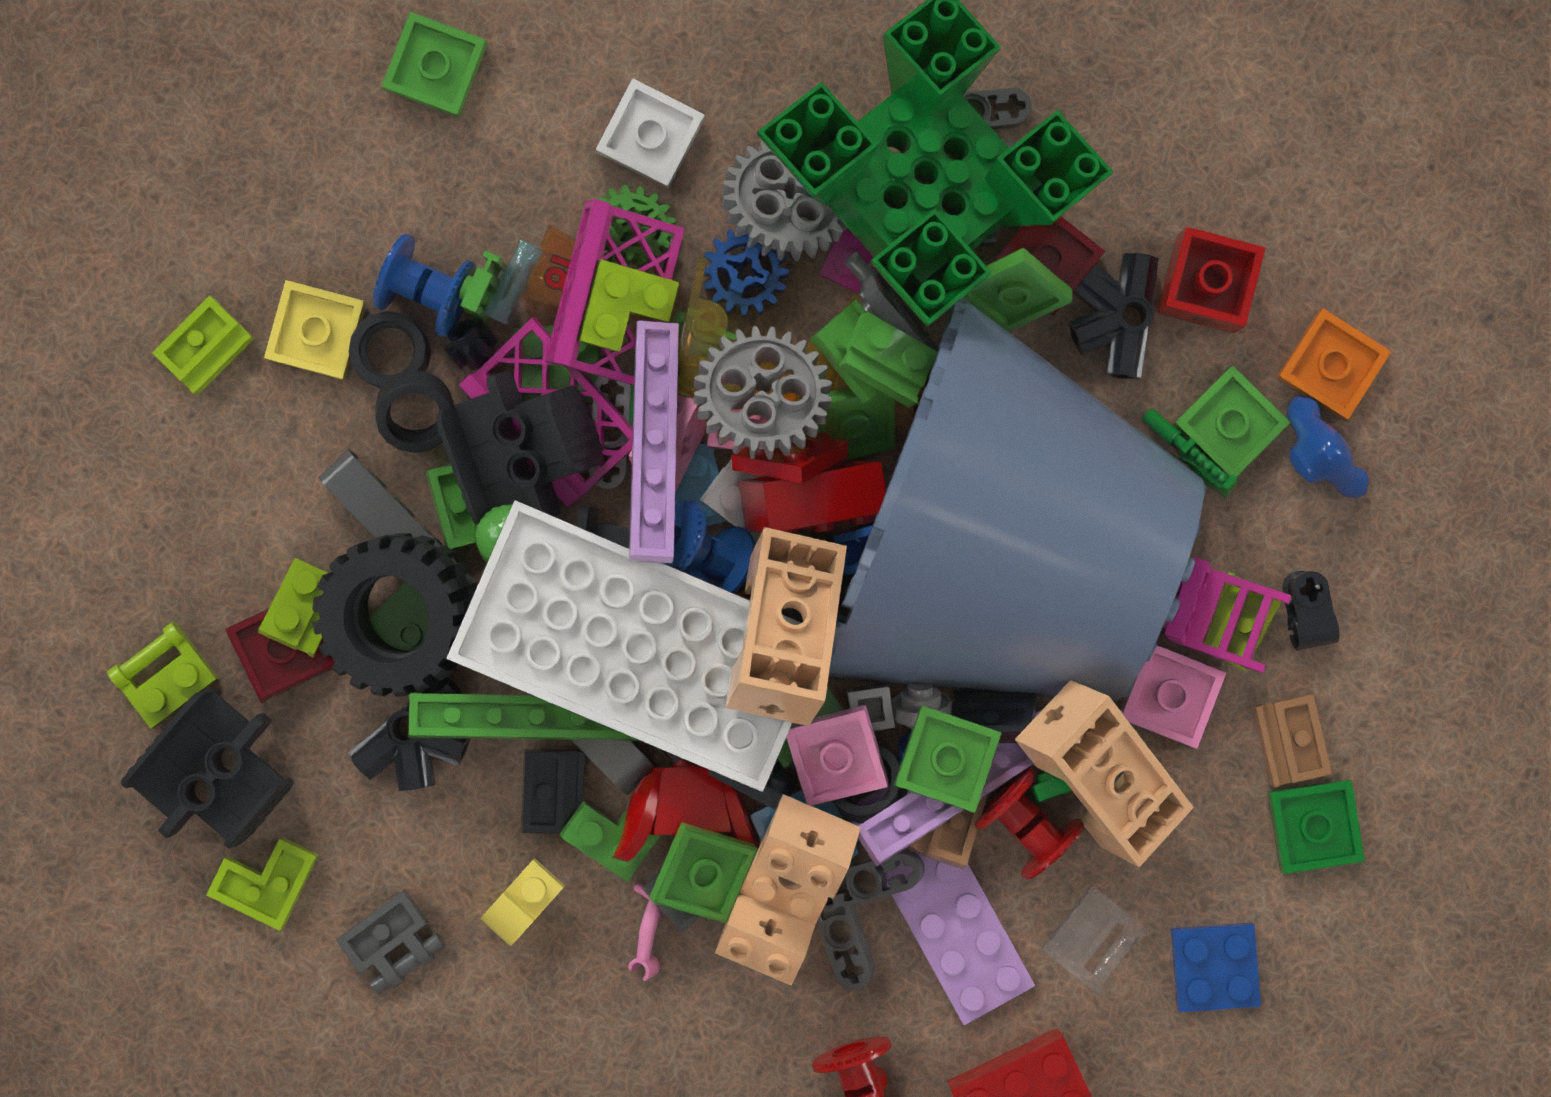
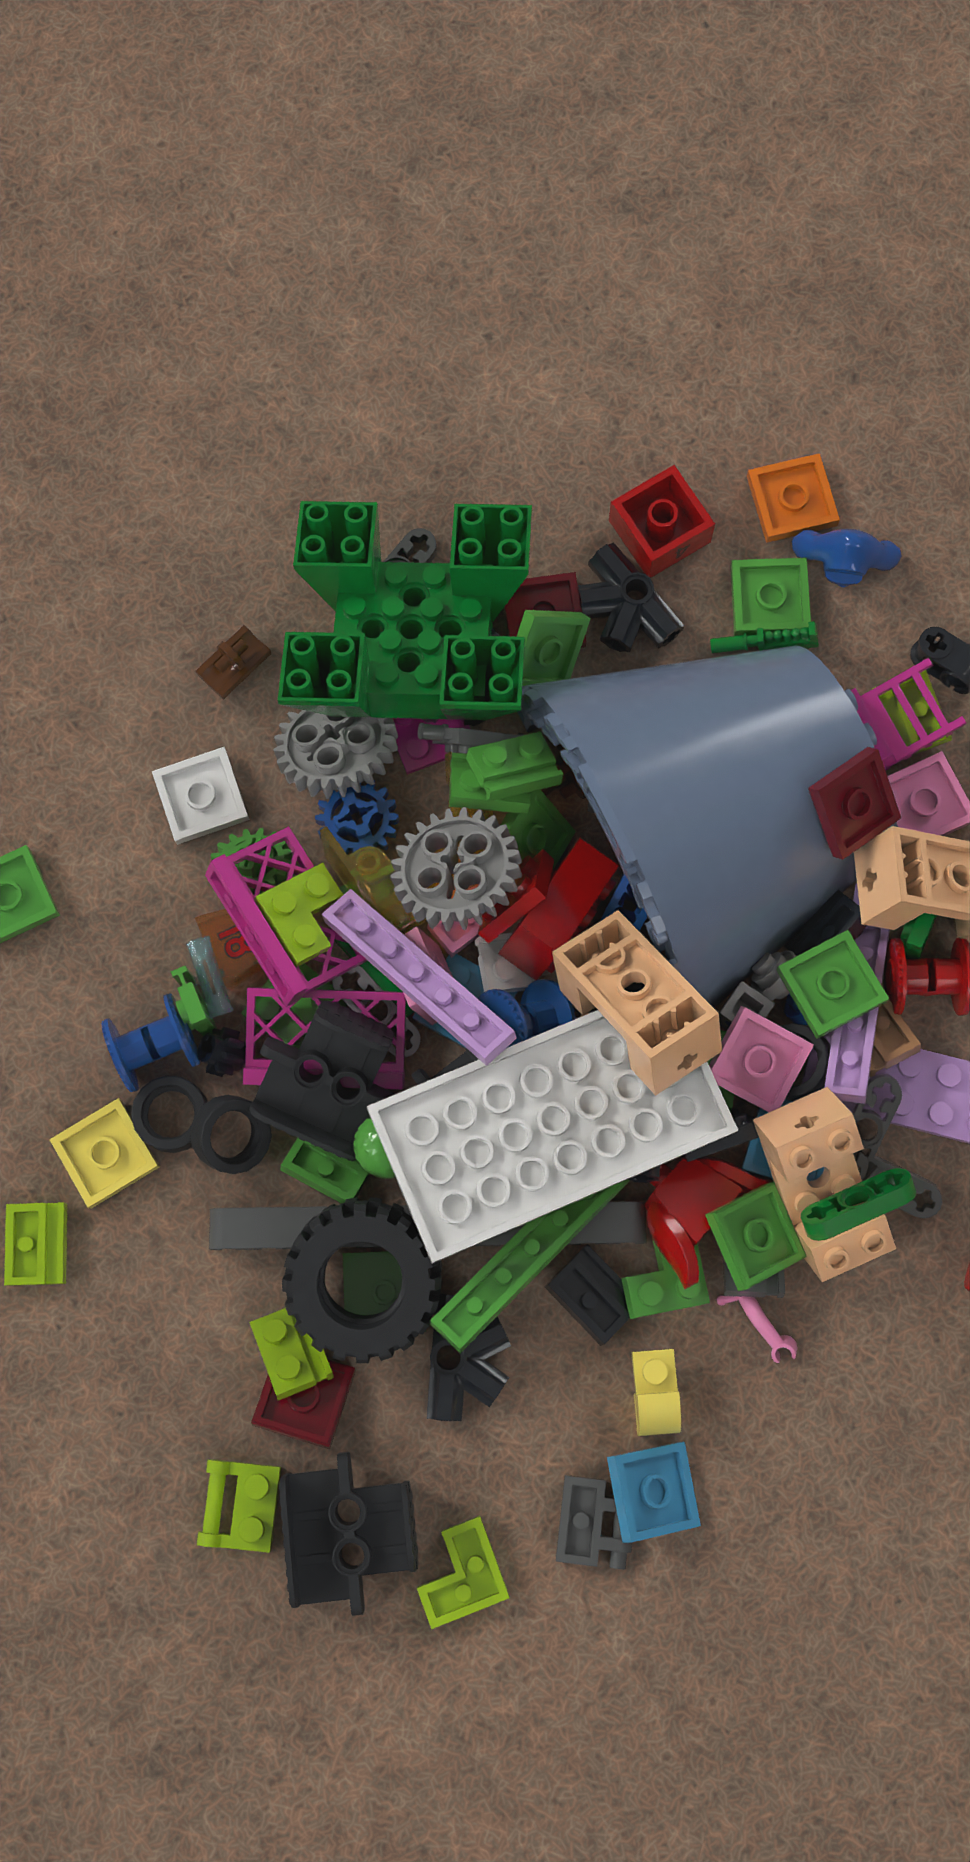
camera: 40 degrees left, 10 degrees down
(450, 966) = (653, 1492): none -> dark azure plate
(777, 55) = (233, 662): none -> reddish brown hips
(780, 932) = (877, 1194): none -> green beam
(1101, 650) = (855, 802): none -> dark red plate

